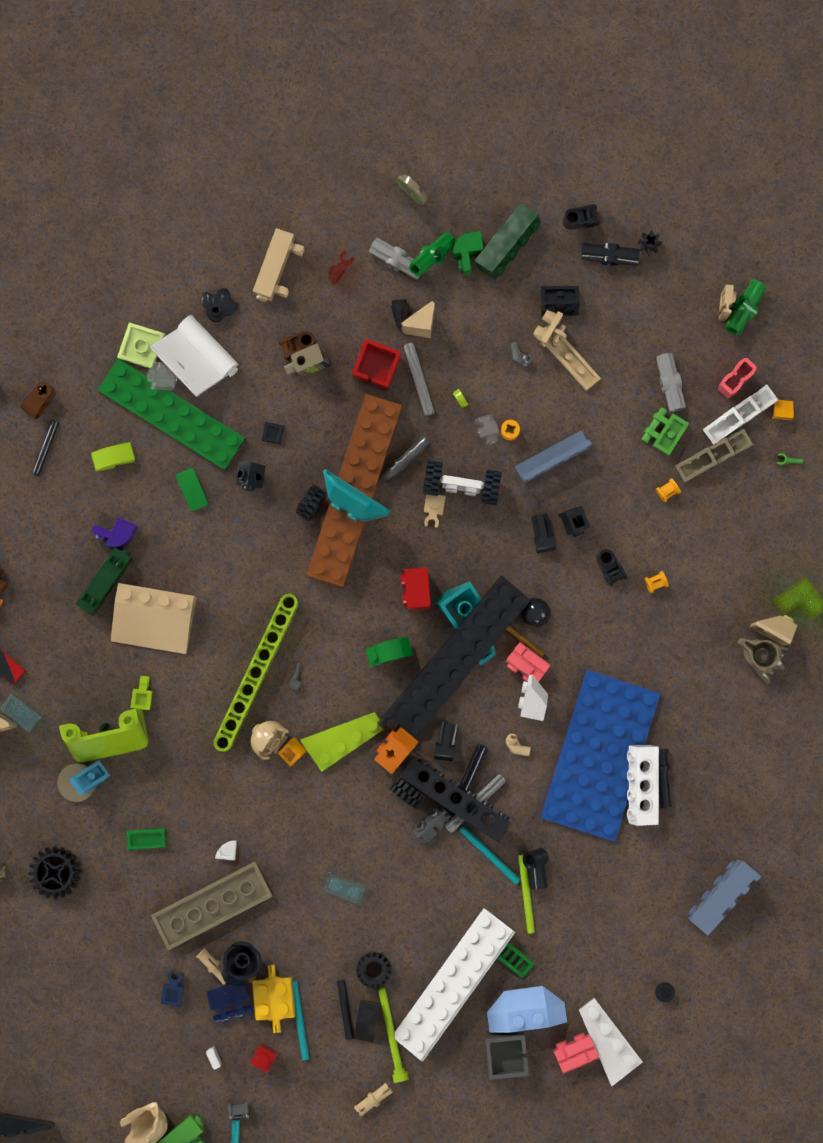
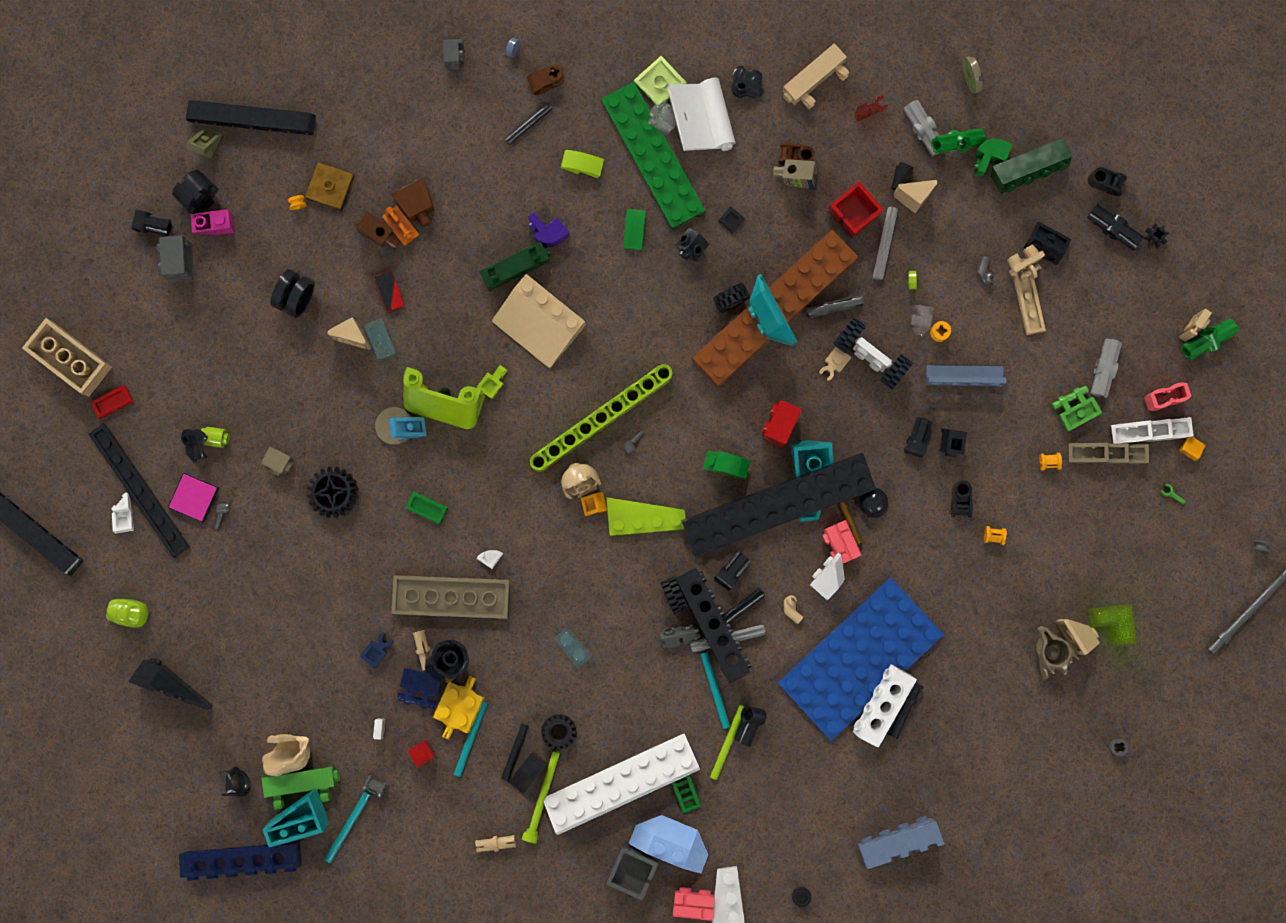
camera: 30 degrees right, 0 degrees up
(395, 750) = (684, 553): orange brick -> none

